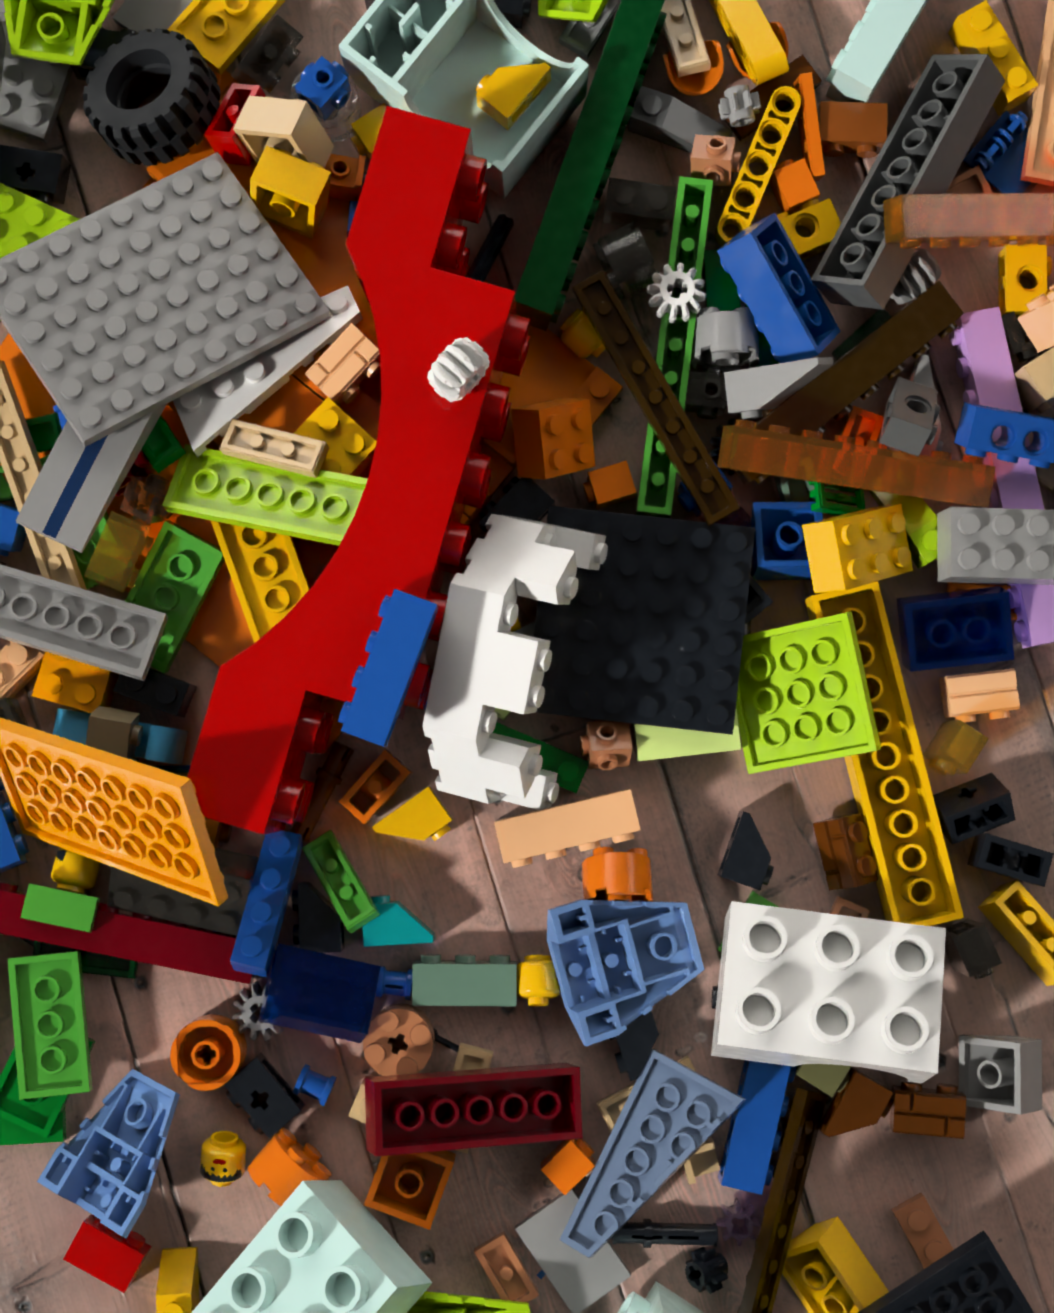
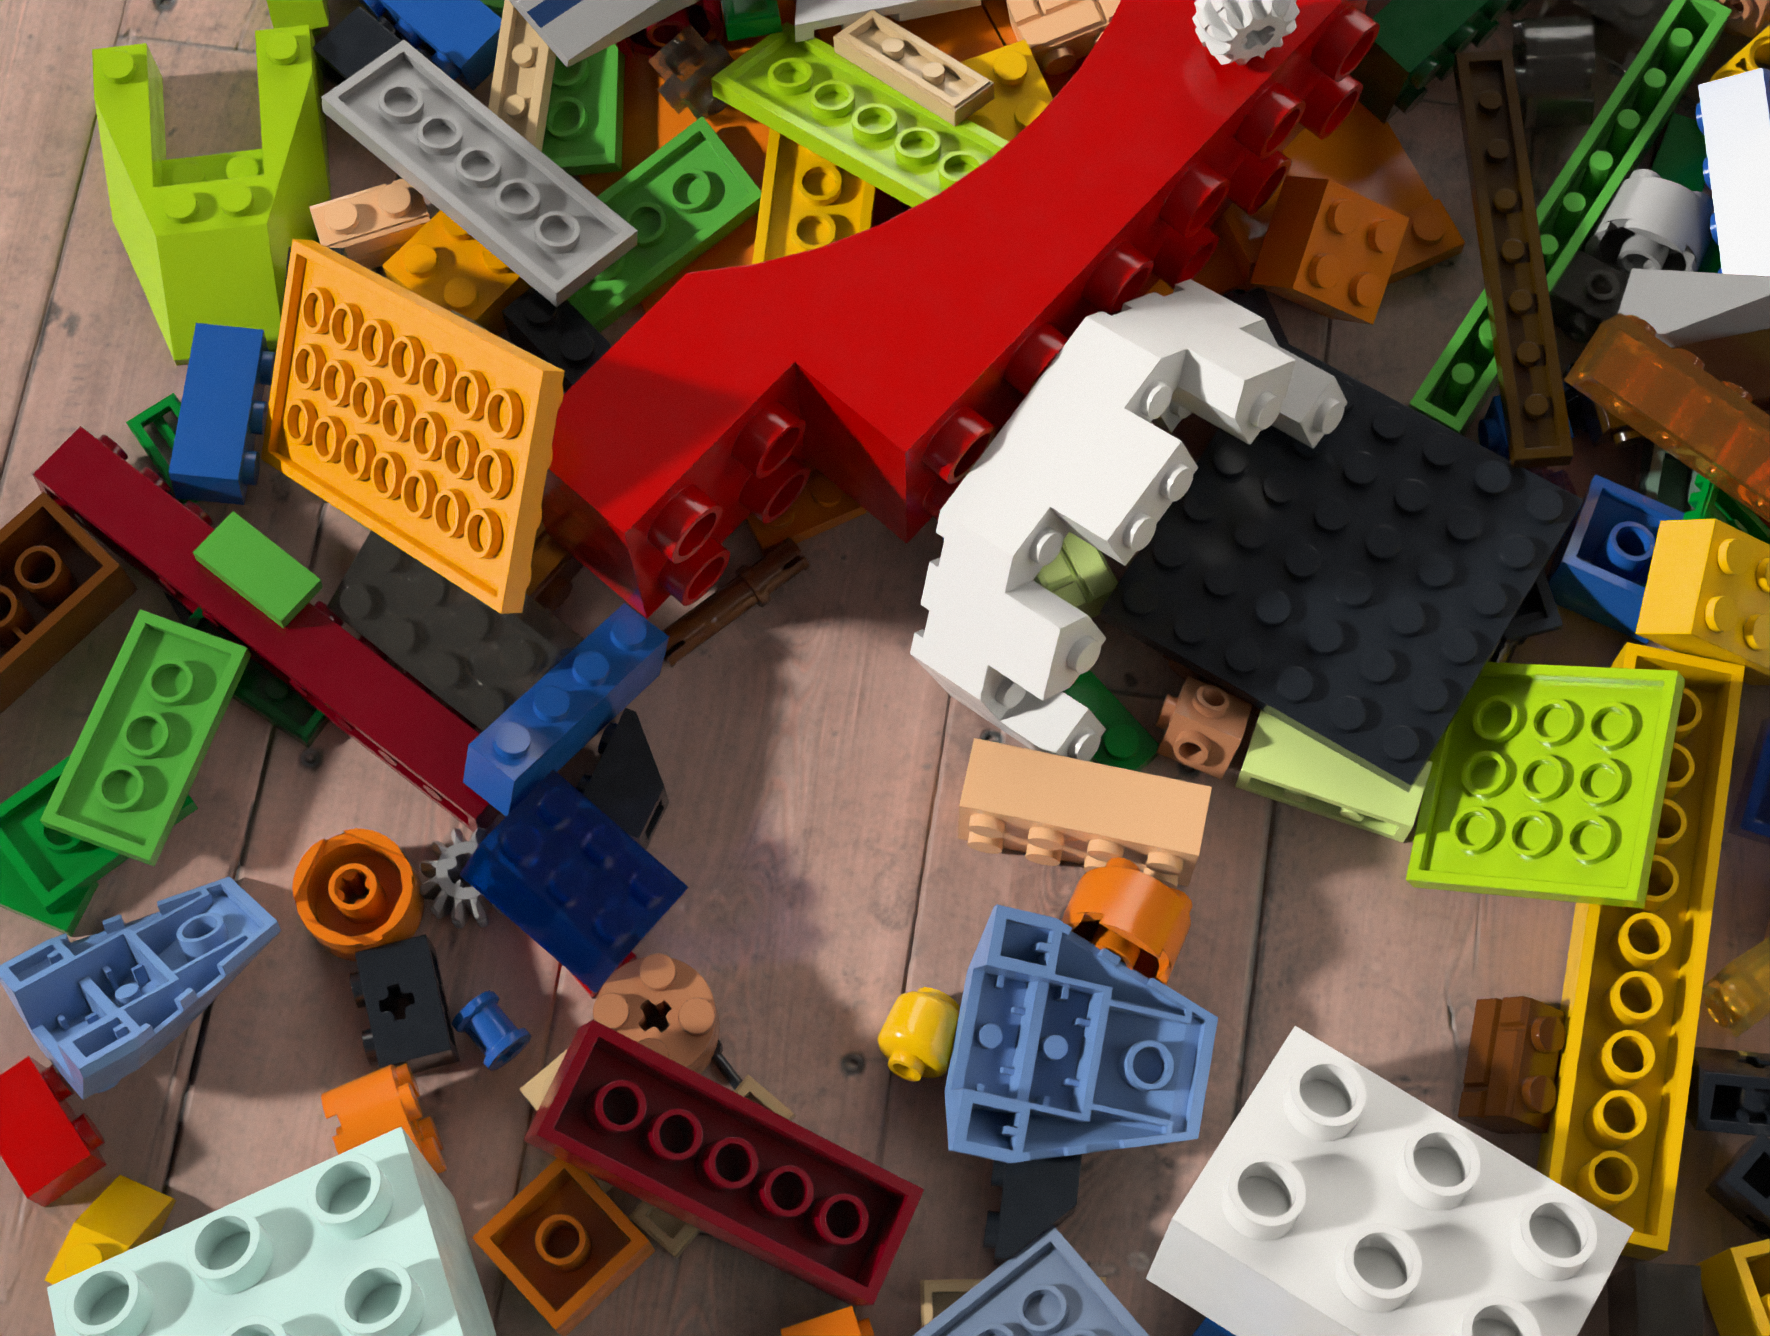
camera: 25 degrees right, 15 degrees down
(74, 871) = (314, 536): yellow head -> none
(118, 553) = (613, 127): clear yellow brick -> none
(223, 1158) = (291, 1072): yellow head -> none
(340, 881) = (692, 739): bright green tile -> none
(375, 787) = (817, 625): orange brick -> none
(389, 668) = (936, 375): blue brick -> none
(394, 983) = (675, 932): blue bush -> none
(395, 925) = (734, 842): teal slope -> none
(417, 818) = (853, 704): yellow slope -> none
(464, 981) = (804, 982): sand green brick -> none
(581, 336) = (1437, 146): yellow head -> none
(610, 485) = (1385, 361): orange brick -> none
(689, 294) = (1609, 125): white gear -> none
(746, 855) = (1347, 998): black slope -> none

